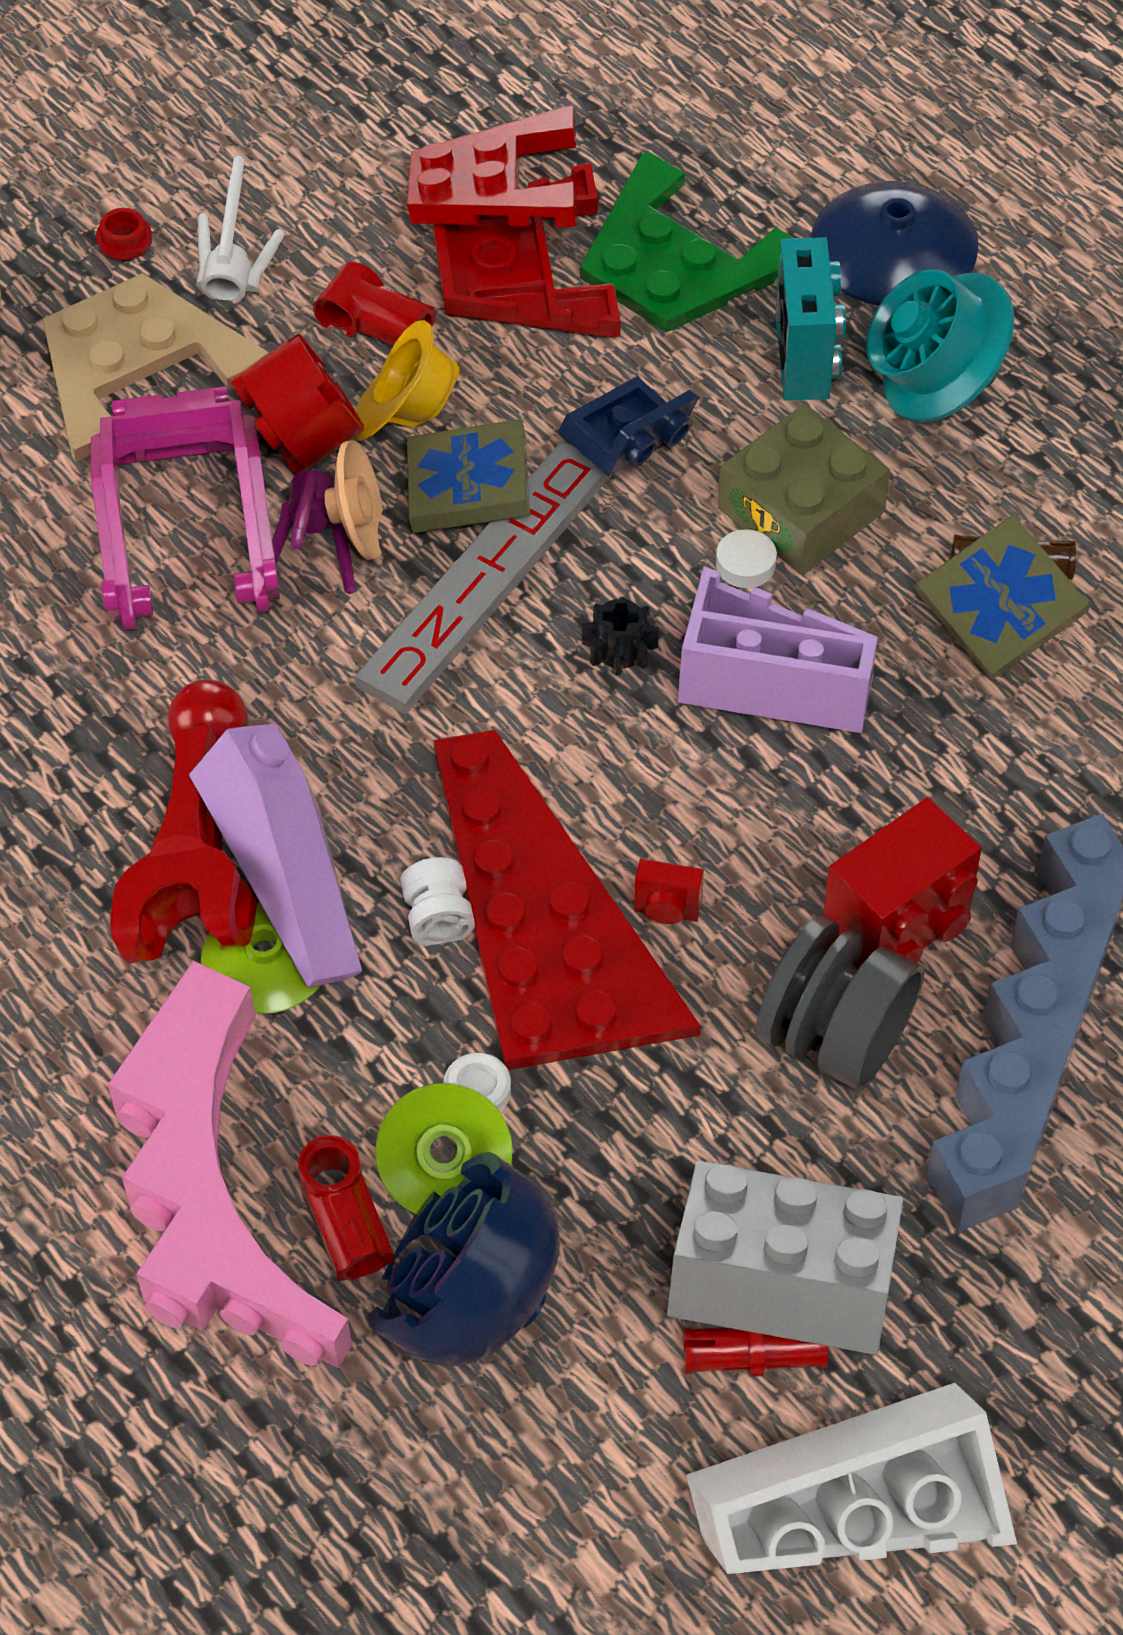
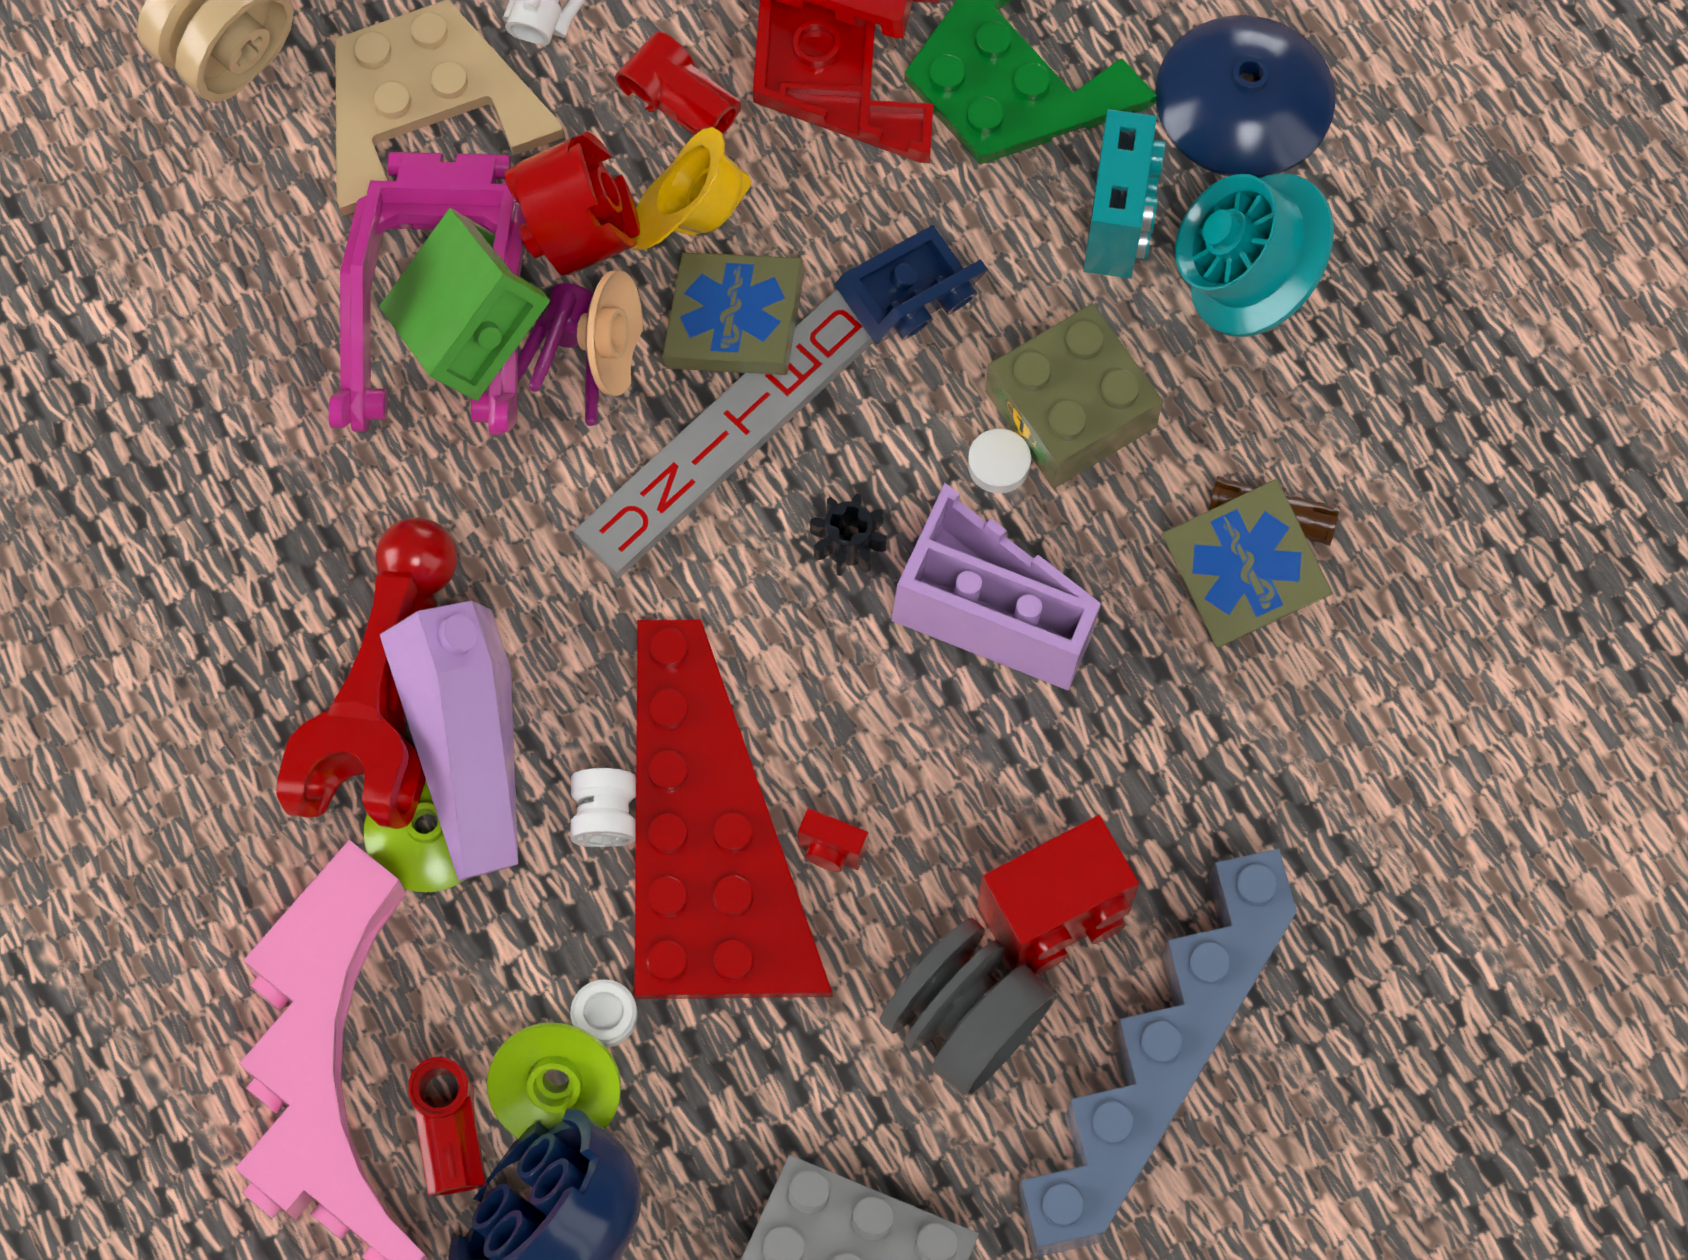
camera: 10 degrees right, 15 degrees up
(214, 488) = (462, 306): none -> bright green panel

